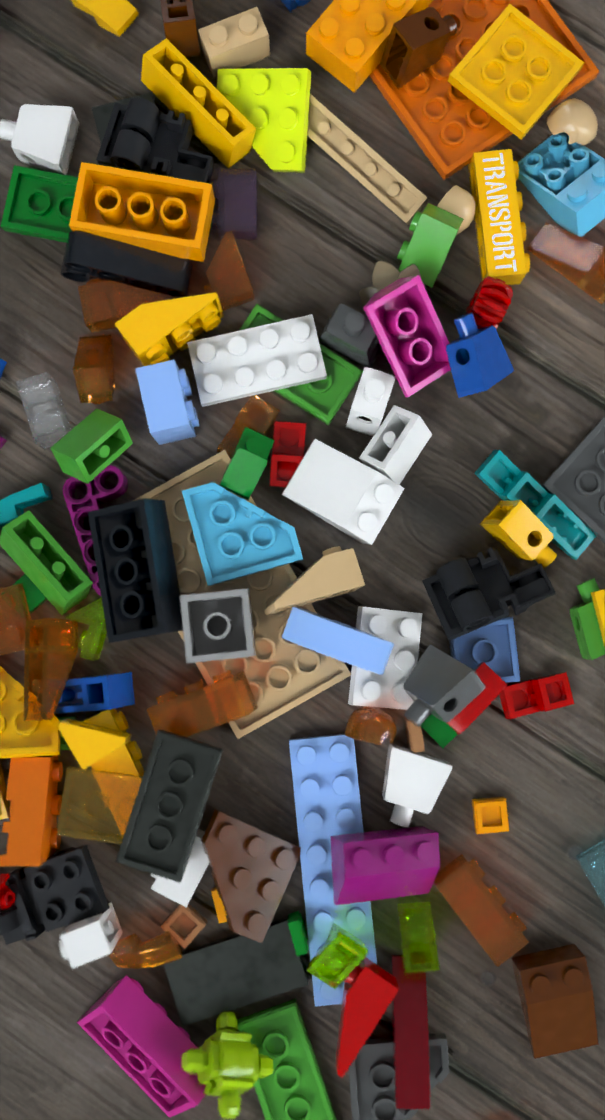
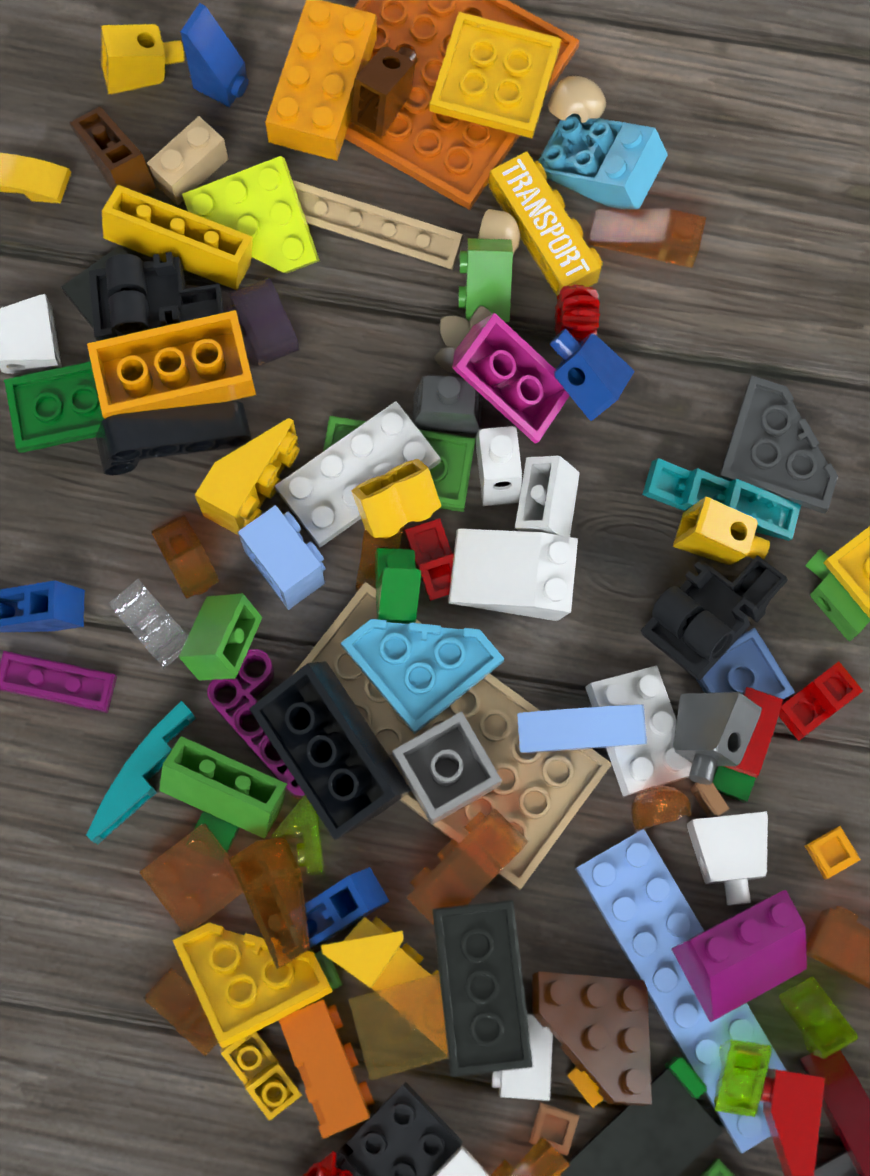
camera: 25 degrees left, 10 degrees down
(110, 301) = (175, 478): clear orange slope -> none
(228, 275) = (288, 397): clear orange slope -> none
(276, 394) = (396, 498): none -> yellow brick
(326, 578) = (539, 669): tan slope -> none

